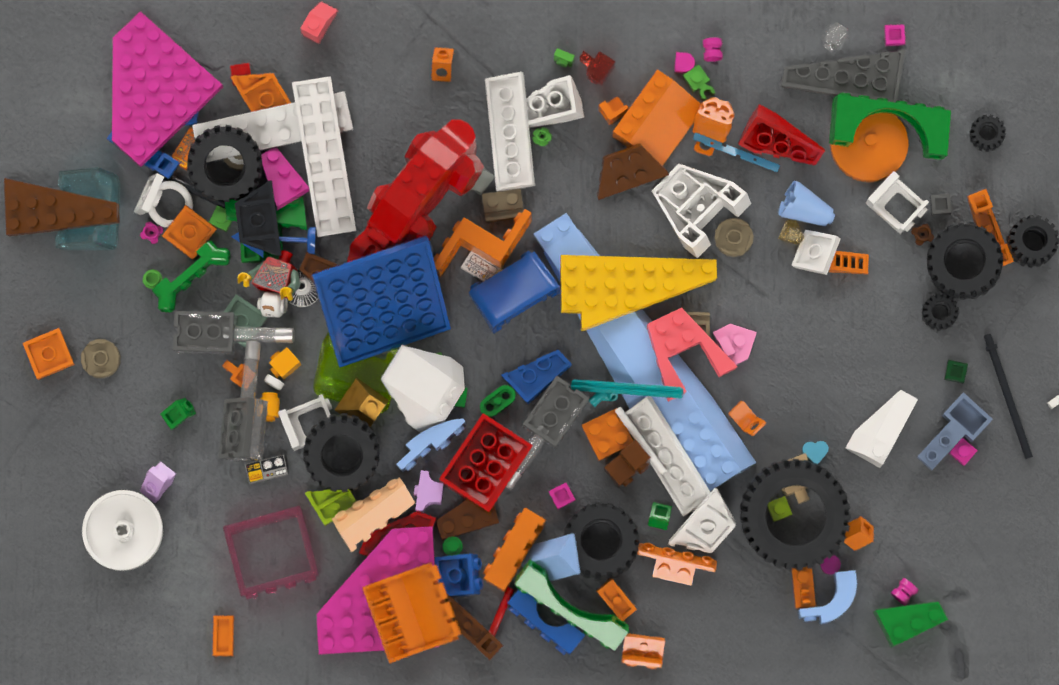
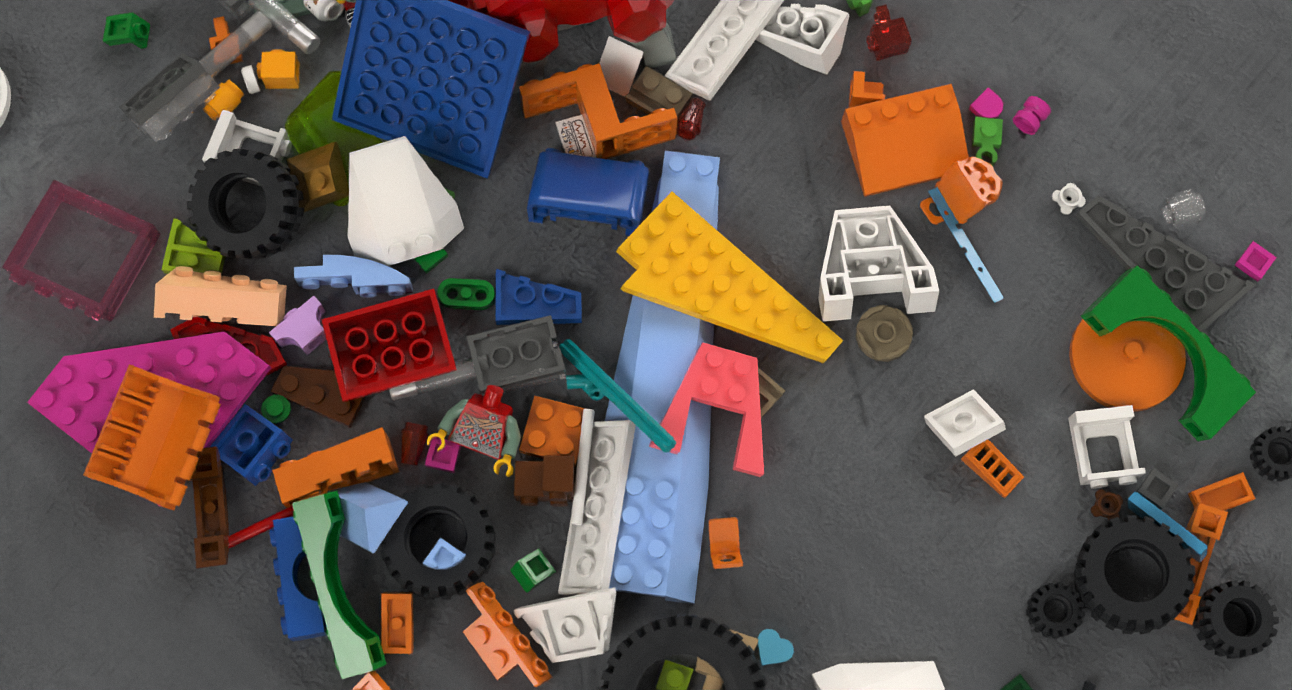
camera: 35 degrees right, 5 degrees down
(157, 481) = (36, 79): lavender brick -> none
(266, 469) = (160, 163): tile -> none
(469, 206) = (619, 65): none -> white sticker
(532, 203) = (690, 120): none -> clear red cone
(540, 502) = (413, 442): none -> clear red cone
(542, 141) = (763, 66): bright green plate -> none
(571, 463) = (482, 426): none -> torso
(615, 545) = (443, 556): none -> light blue tile
(628, 170) = (827, 166): reddish brown wing -> none
(735, 342) = (786, 449): bright pink plate -> none
(774, 135) = (1025, 262): red wedge -> none
(775, 77) = (1074, 193): none -> white plate
(791, 232) = (954, 380): clear yellow tile -> none
(805, 206) = (995, 363): light blue cone -> none
(976, 178) = (1224, 493): none -> orange tile
(984, 221) = (1143, 508): none -> dark azure tile

